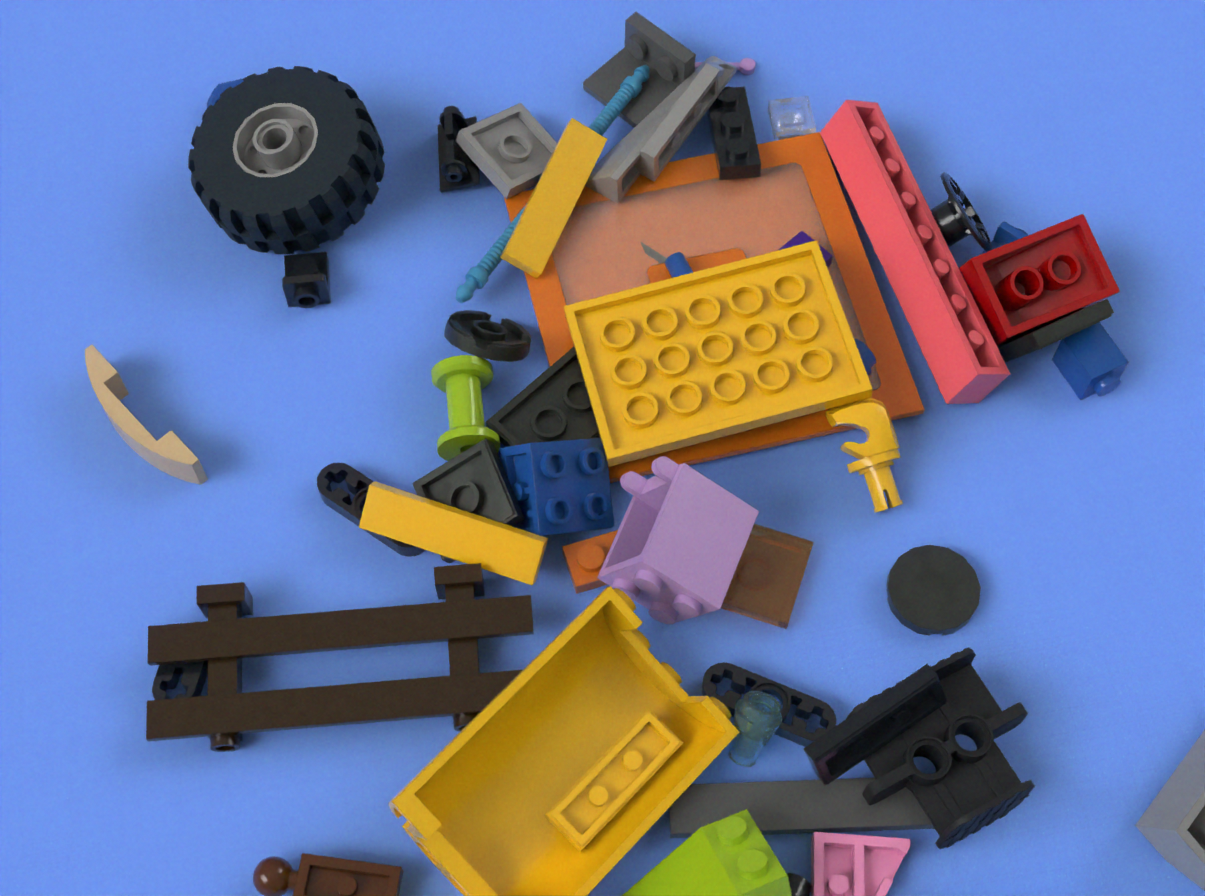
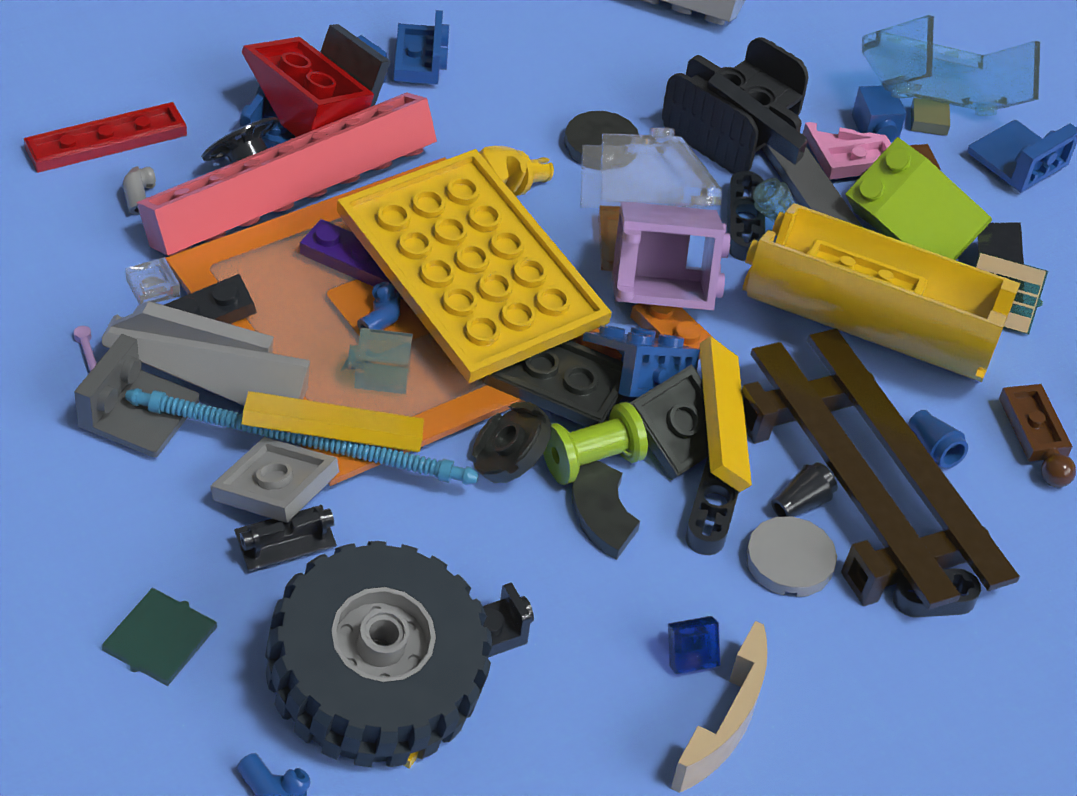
camera: 115 degrees left, 15 degrees down
(214, 417) = (693, 644): none -> clear blue tile
(282, 551) = (791, 556): none -> light grey tile
(343, 585) = (807, 490): none -> black cone
(363, 760) = (941, 440): none -> blue cone
(400, 60) = (159, 636): none -> piece
(400, 404) = (600, 509): none -> pearl dark grey tile
(617, 254) = (381, 360): none -> clear light blue brick
(759, 574) = (646, 170): none -> clear windscreen
(933, 130) = (134, 186): none -> light grey arm
(1017, 128) = (105, 137): none -> red tile
(1113, 434) = (420, 51): none -> blue bracket

